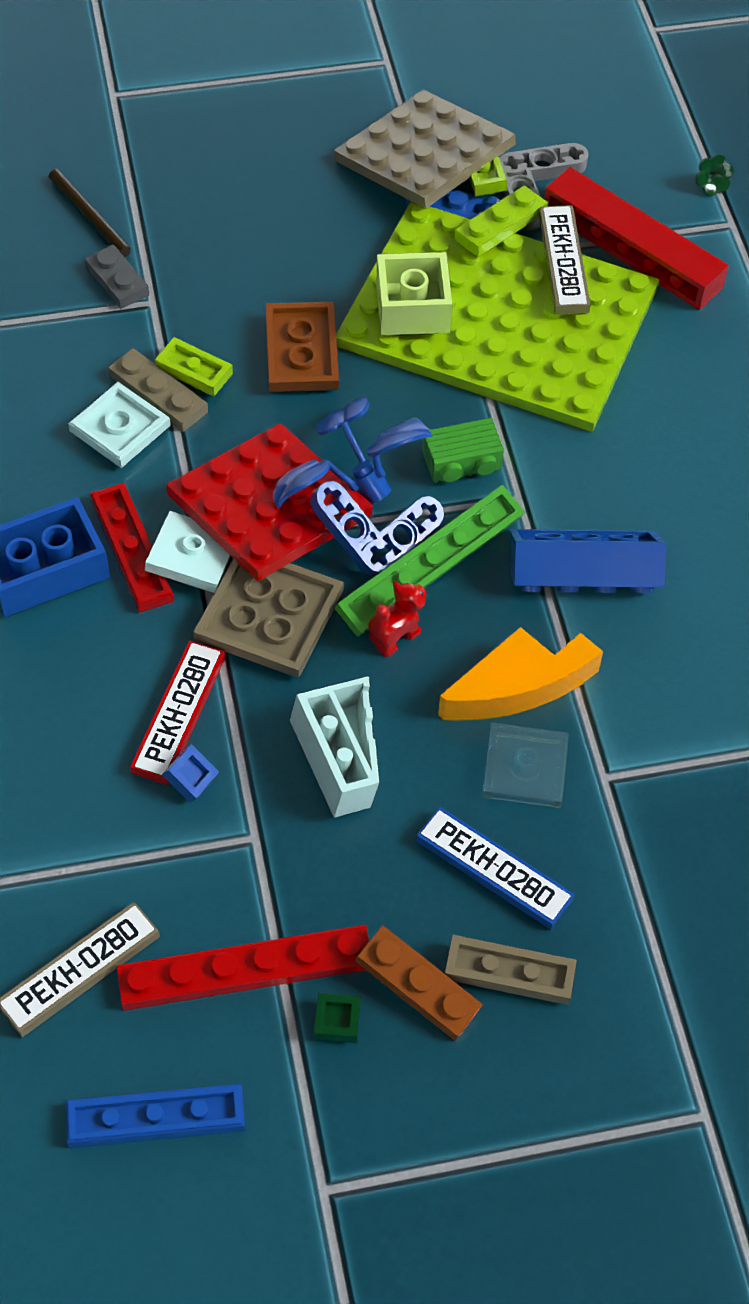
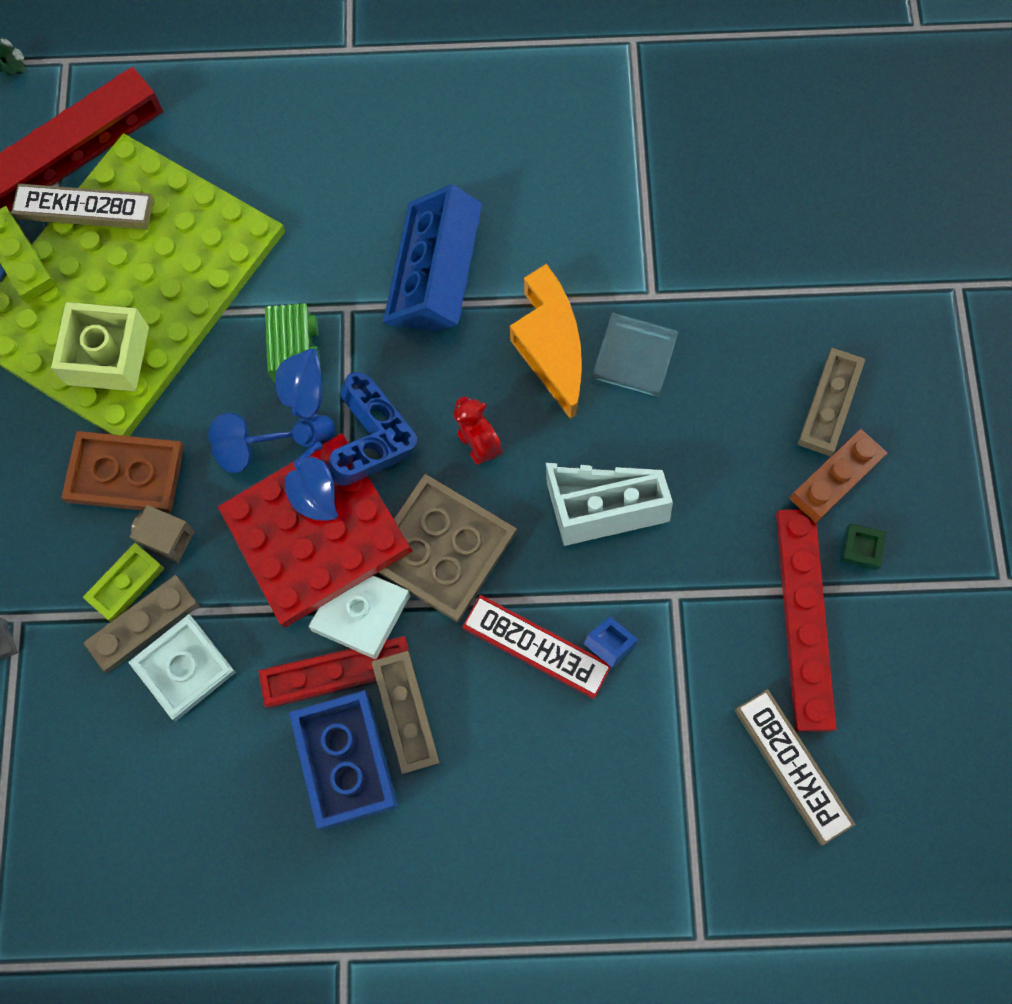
camera: 75 degrees left, 15 degrees up
(95, 601) = (405, 712): none -> dark tan plate
(154, 1115) = (936, 713): blue tile -> none
(244, 384) = (161, 533): none -> dark tan brick
(433, 556) = (412, 394): bright green plate -> none
(495, 868) = (731, 398): tile -> none

